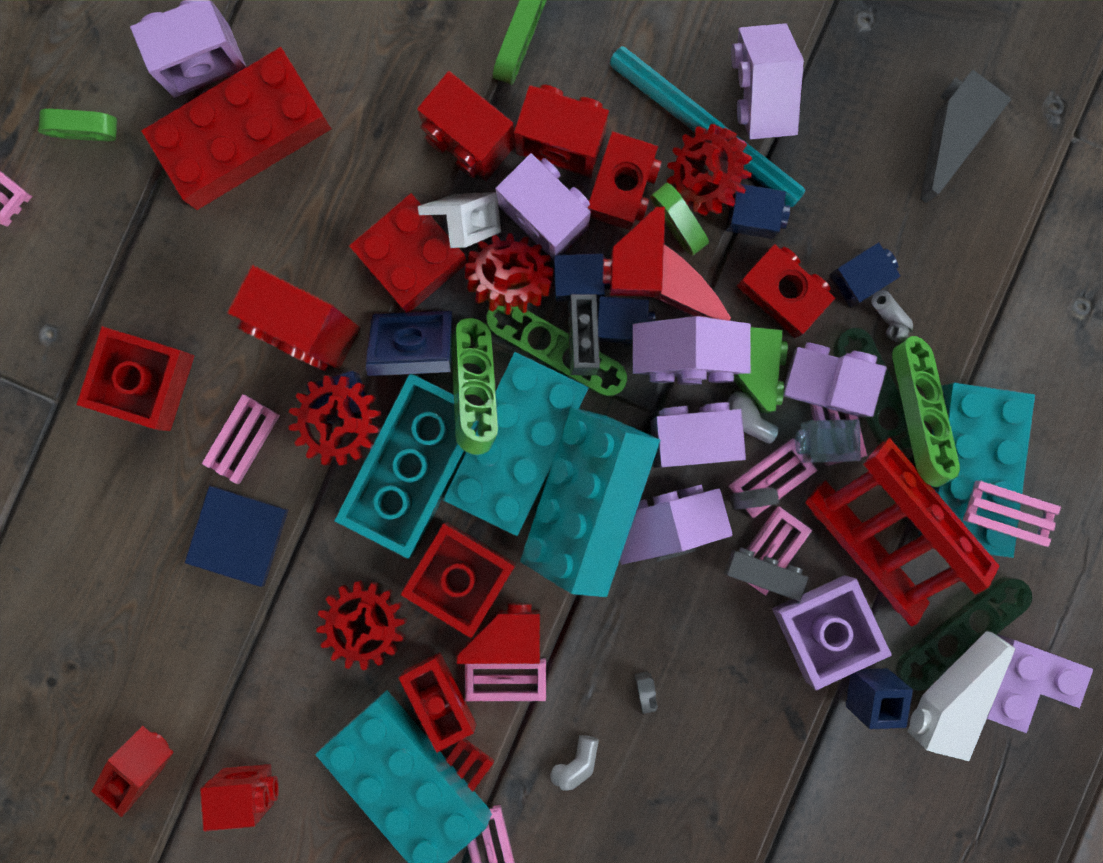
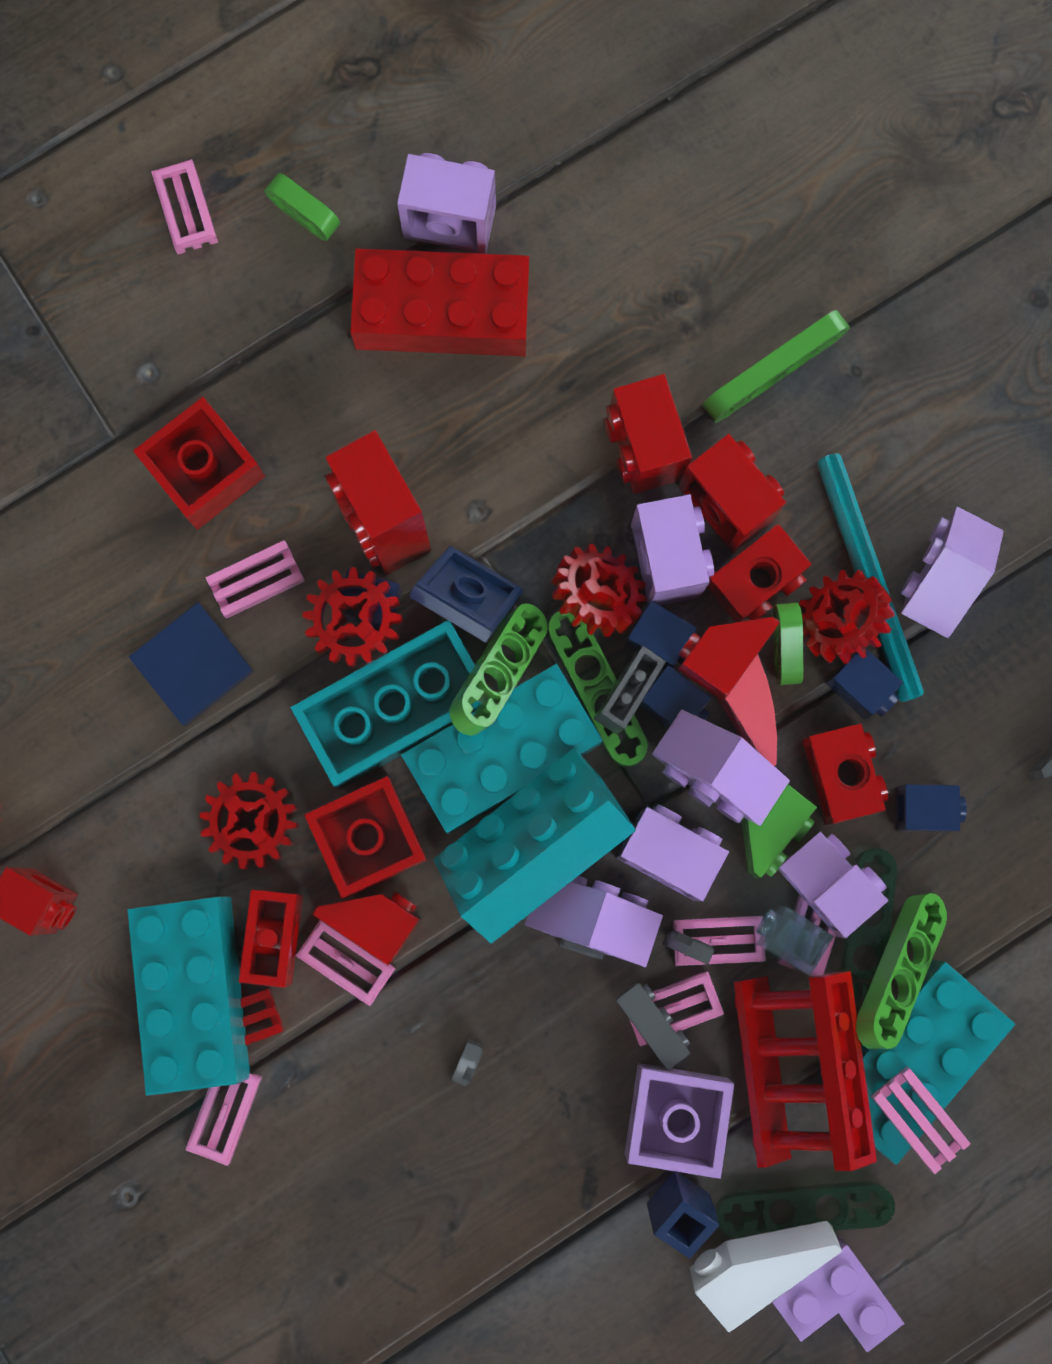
camera: 30 degrees right, 5 degrees down
(408, 254) = (520, 513): red brick -> none
(469, 216) = (596, 514): white panel -> none
(578, 770) = (357, 1092): light grey arm -> none
(751, 419) = (733, 871): light grey arm -> none
(893, 315) = (931, 863): light grey arm -> none

